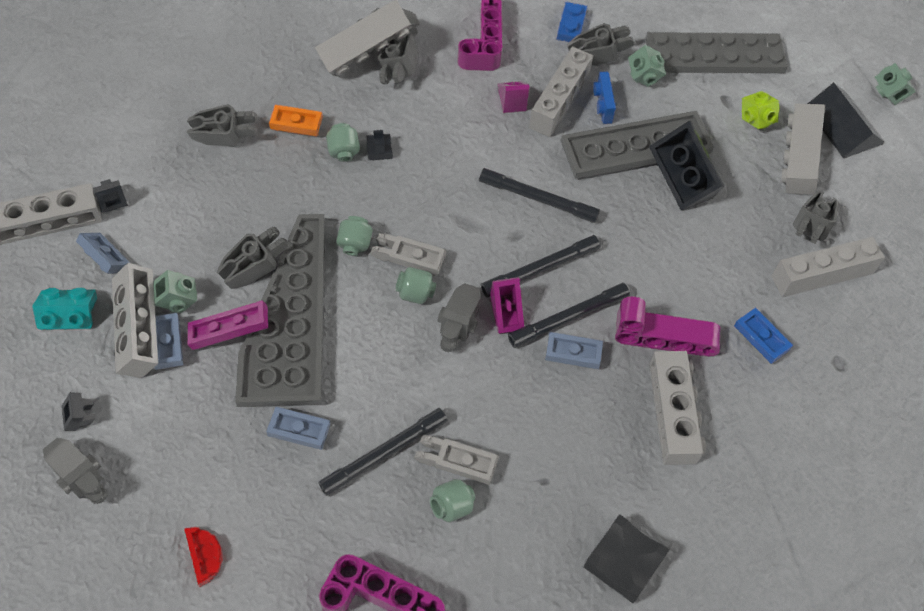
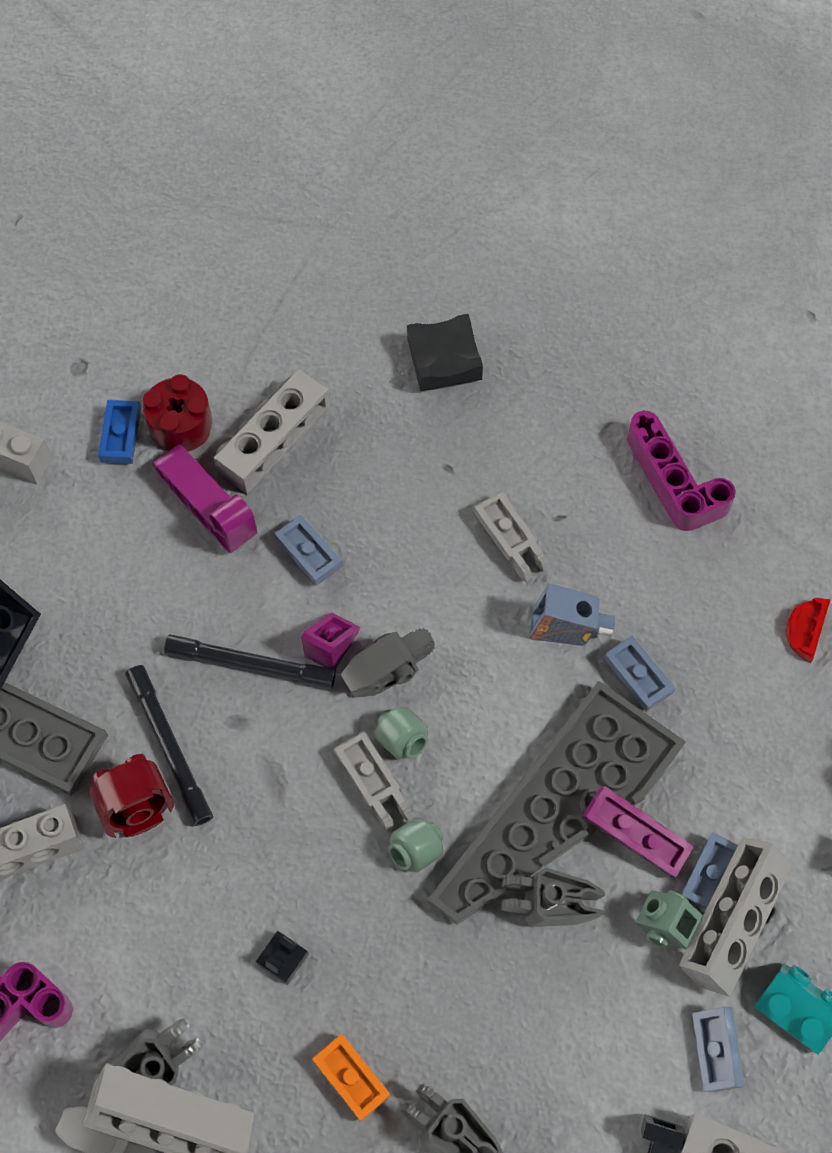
camera: 135 degrees left, 5 degrees up
(342, 142) = (324, 989): sand green head -> none
(343, 475) = (628, 599): black piece -> none
(370, 422) = (568, 617): none -> sand blue torso
(452, 500) = (549, 500): sand green head -> none
(513, 96) = (57, 902): magenta slope -> none
(526, 148) = (130, 797): none -> dark red brick
(532, 331) = (222, 578): black piece -> none
(742, 368) = (178, 413): none -> dark red brick

